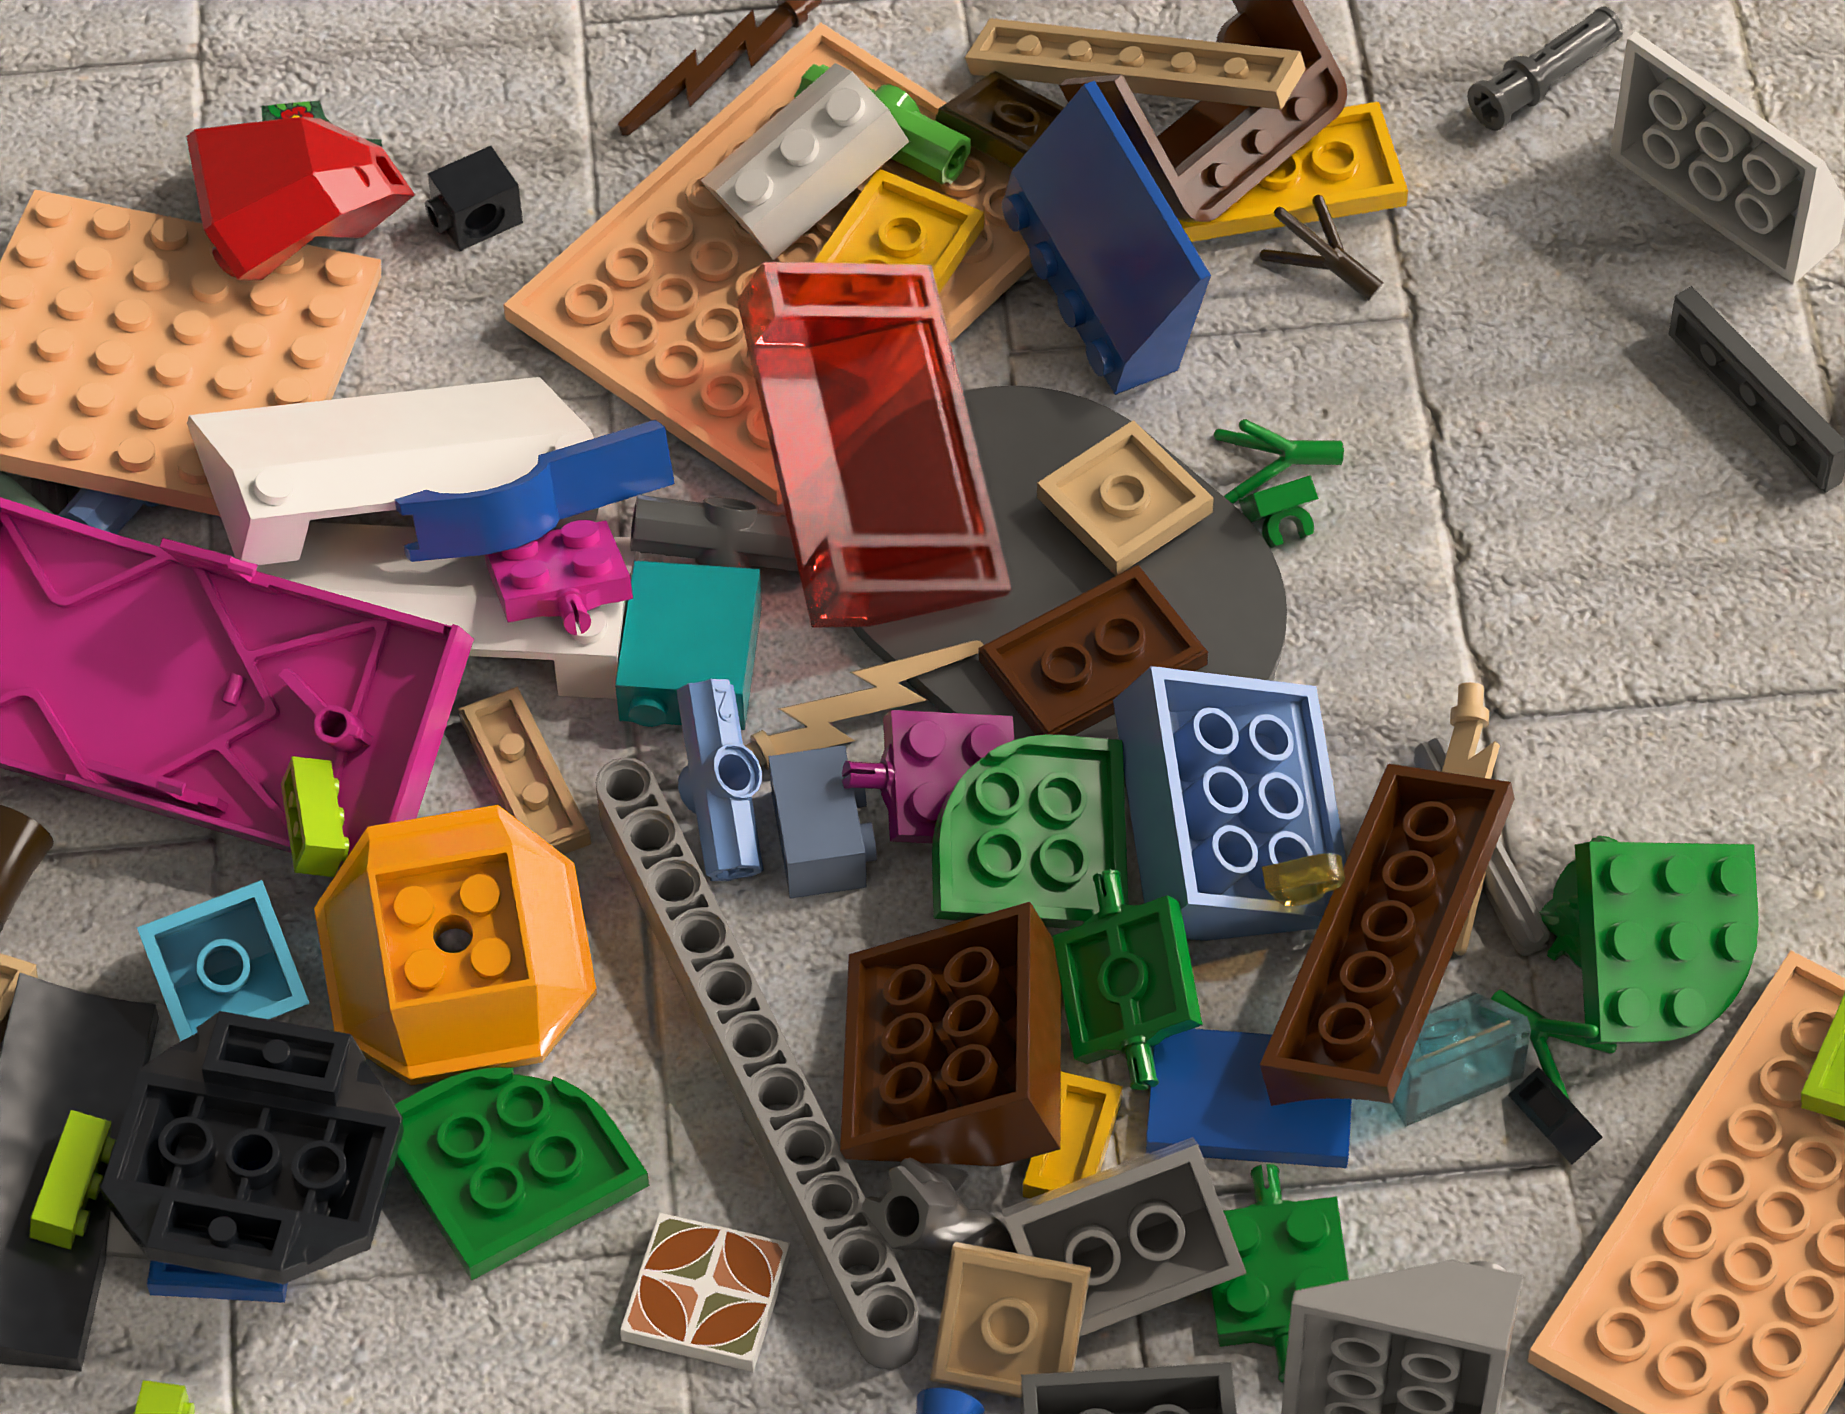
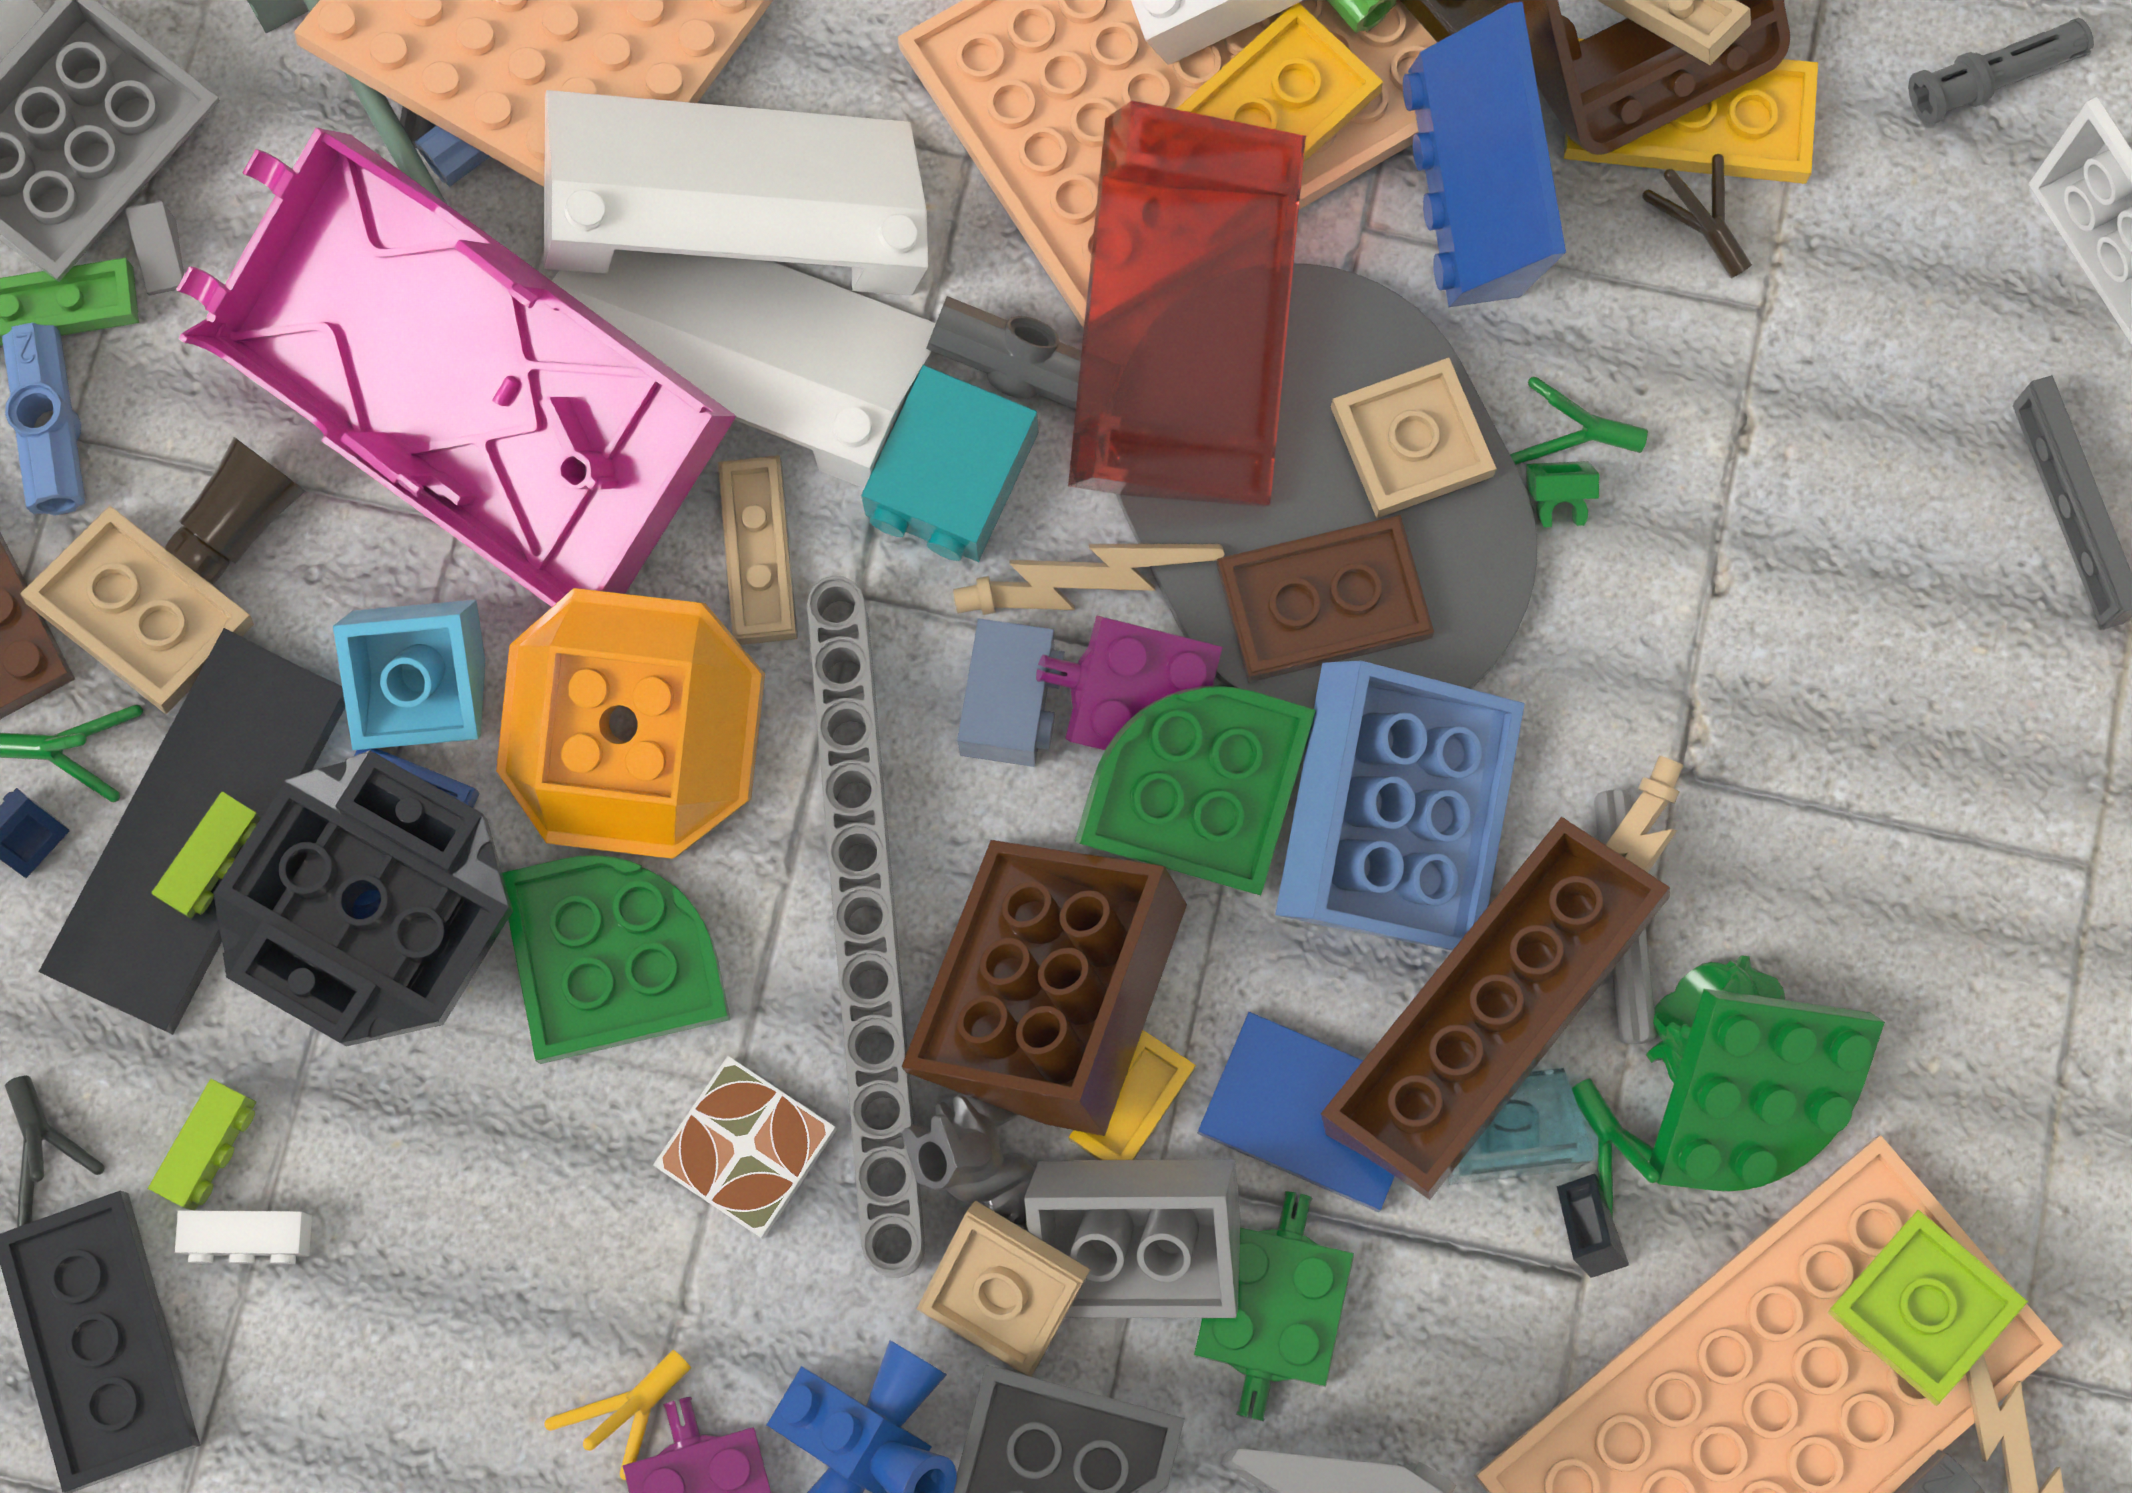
camera: 20 degrees right, 20 degrees up
(314, 817) = (533, 556): lime piece -> none
(529, 507) = (872, 271): blue piece -> none
(561, 575) = (842, 361): dark pink plate -> none
(719, 780) = (918, 664): medium blue piece -> none
(1127, 980) = (1233, 965): green plate -> none
(1304, 879) = (1433, 925): clear yellow tile -> none

